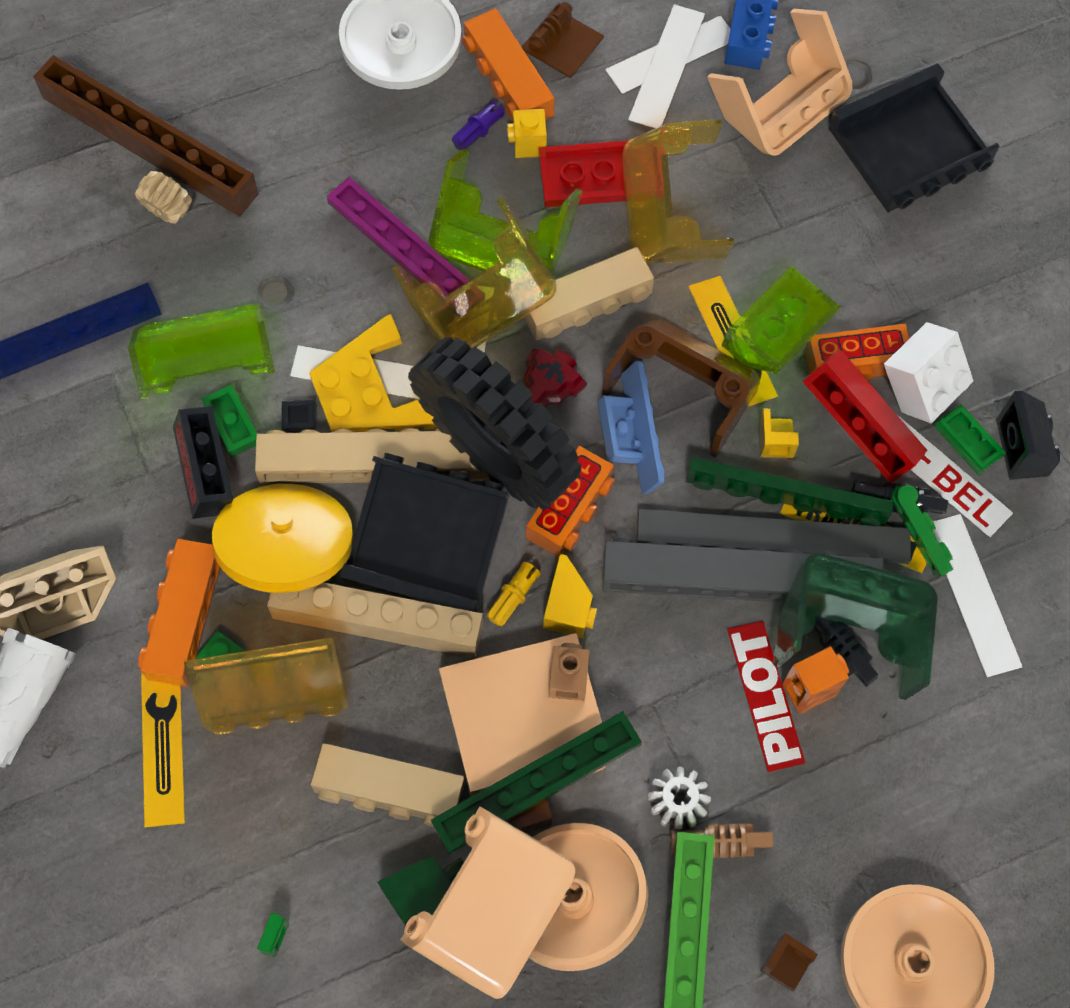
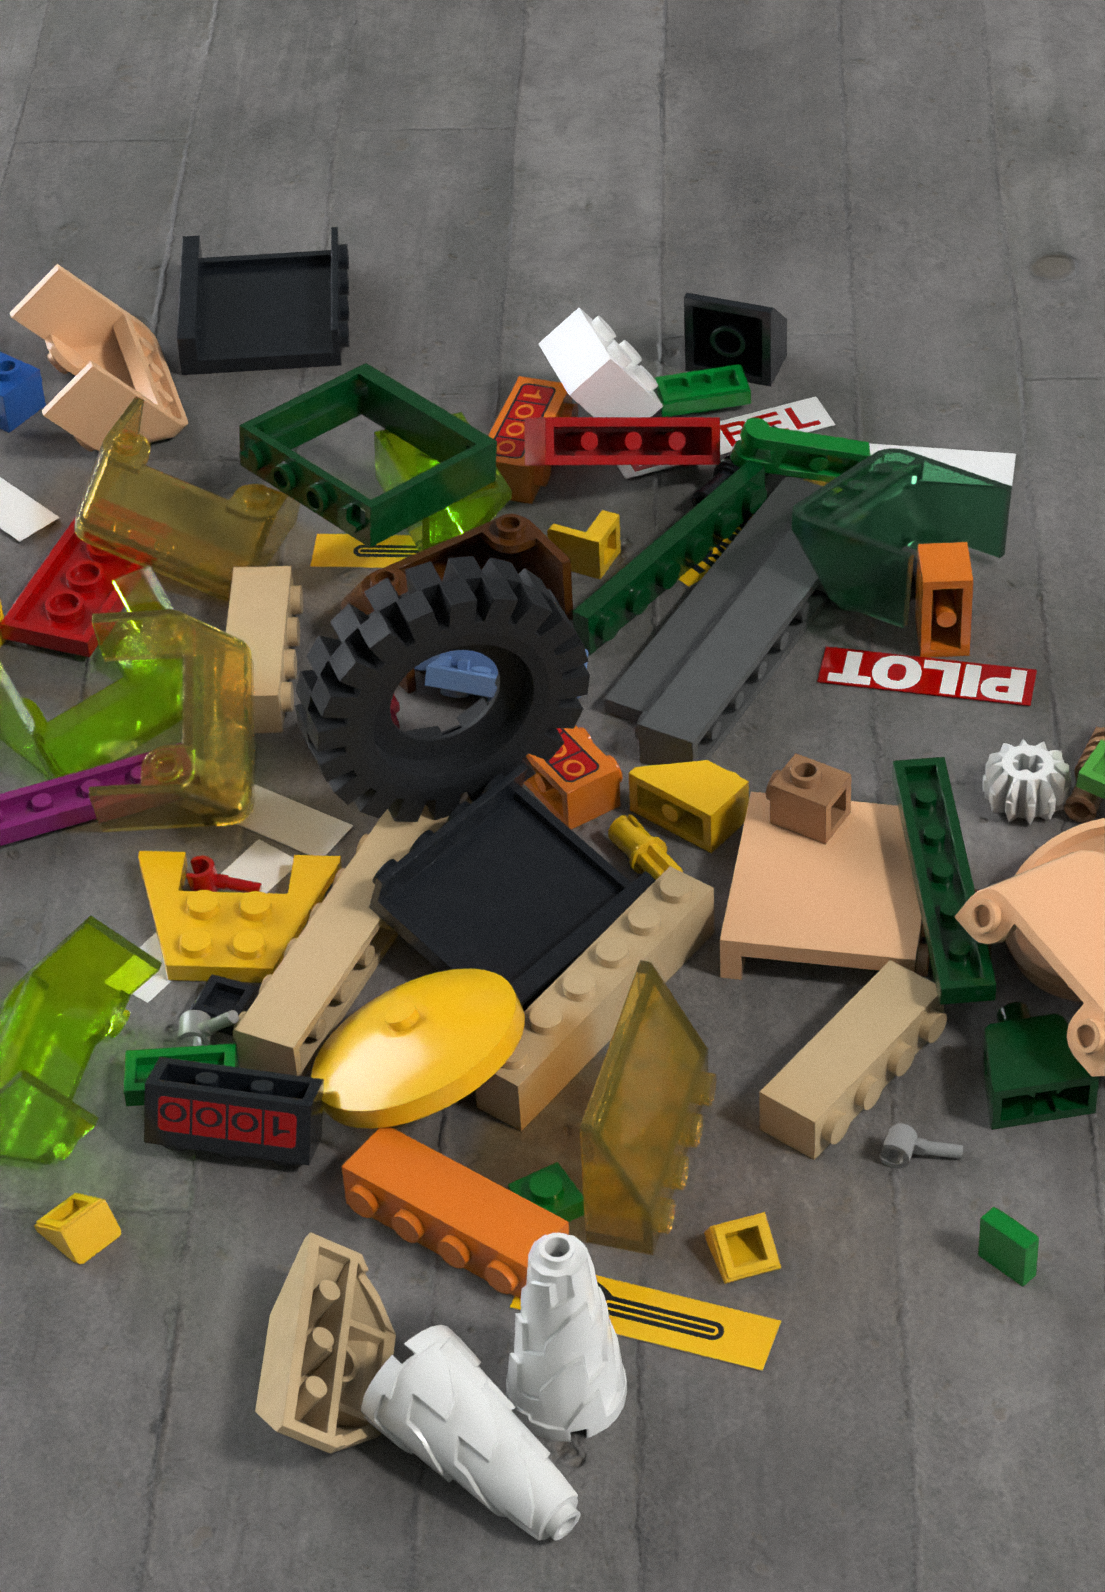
camera: 60 degrees left, 25 degrees down
(84, 719) = (565, 1348): none -> white cone
(110, 423) = (79, 1227): none -> yellow slope
(226, 779) = (743, 1247): none -> yellow slope
(269, 413) = (201, 1026): none -> light grey hand
(337, 840) = (903, 1141): none -> light grey hand
(390, 364) = (207, 878): none -> red hand
(769, 225) = (464, 453): none -> dark green window

